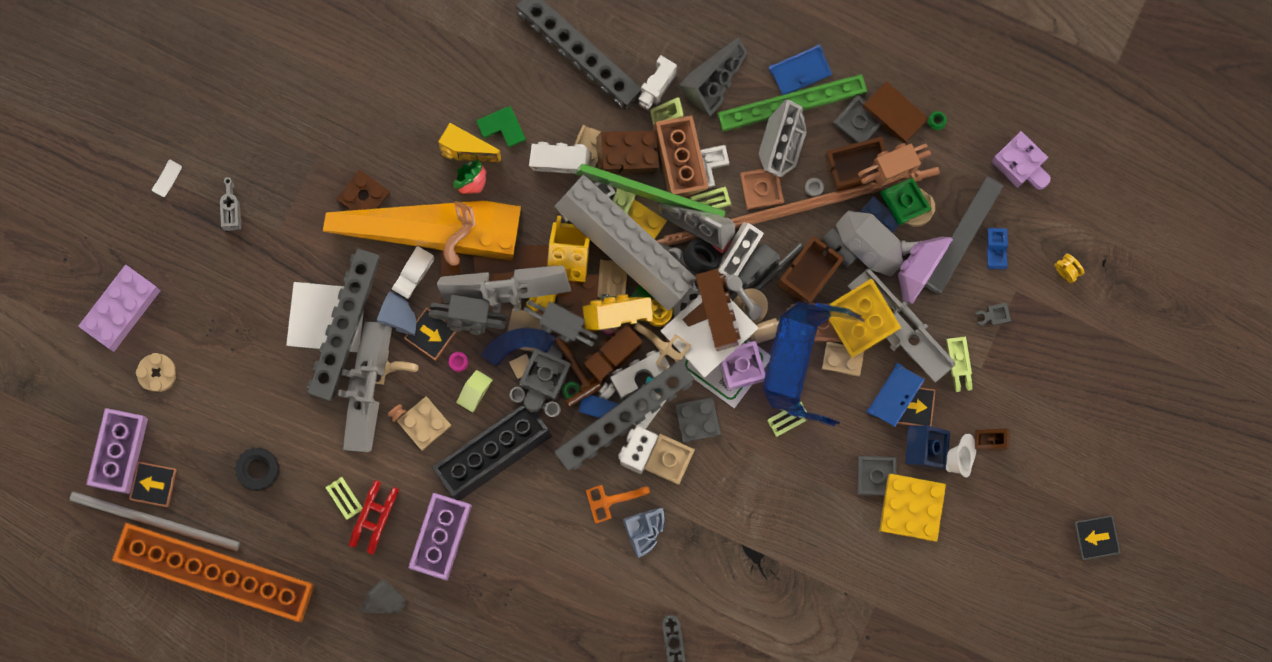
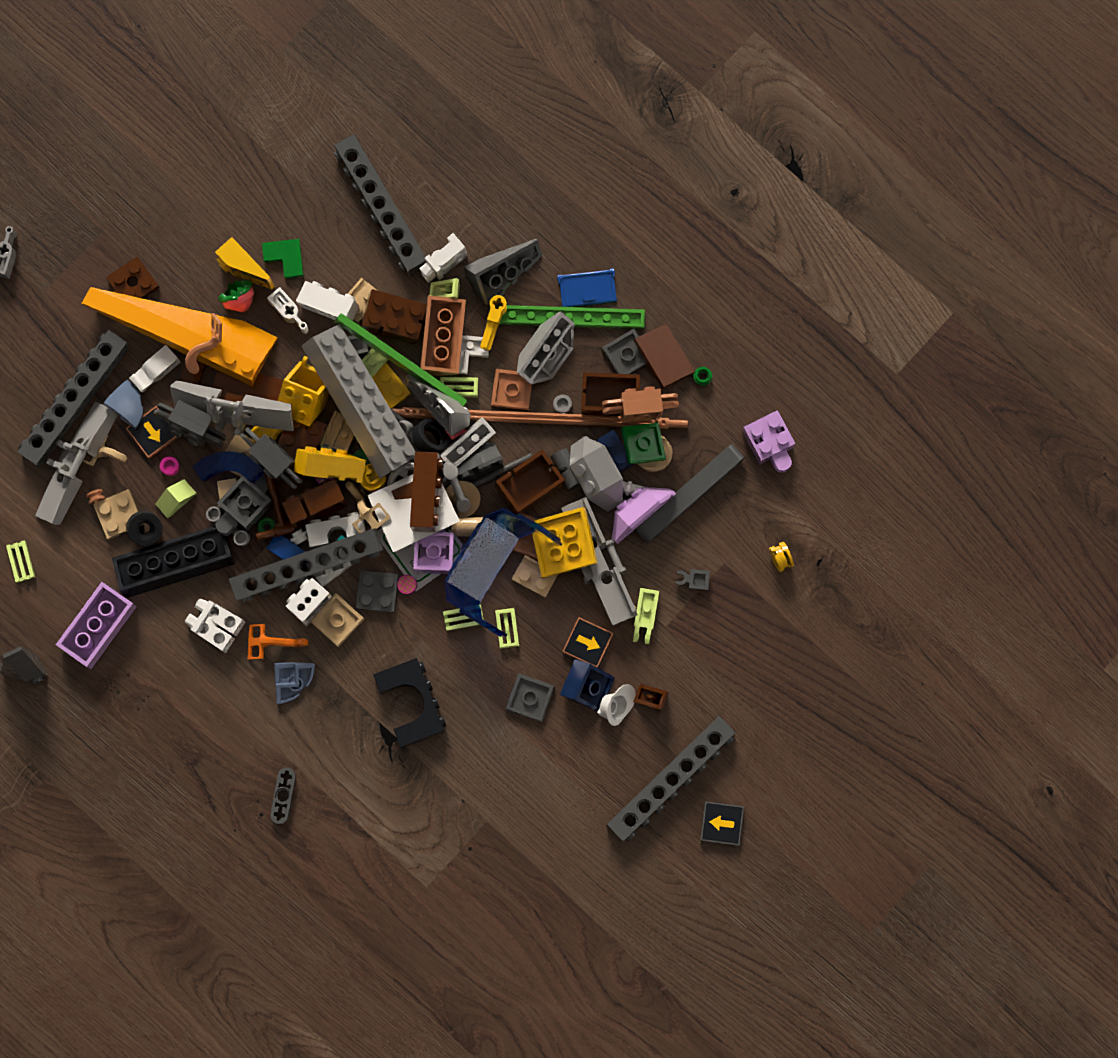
camera: 25 degrees right, 0 degrees up
(312, 314) = (47, 379): white sticker -> none
(376, 528) = (29, 587): red piece -> none
(444, 429) = (134, 523): none -> black tyre
(515, 172) = (288, 305): none -> white piece
(547, 501) = (210, 619): none -> white hips
(724, 127) = (493, 321): none -> yellow connector
(724, 404) = (407, 584): none -> tile
(759, 489) = (411, 675): none -> black arch
(839, 412) = (504, 612): none -> yellowish green tile
(893, 394) = (571, 624): blue door -> none
(912, 507) = (553, 738): yellow plate -> none
(997, 248) = (719, 516): blue slope -> none
(1000, 568) = (717, 727): none -> dark grey brick

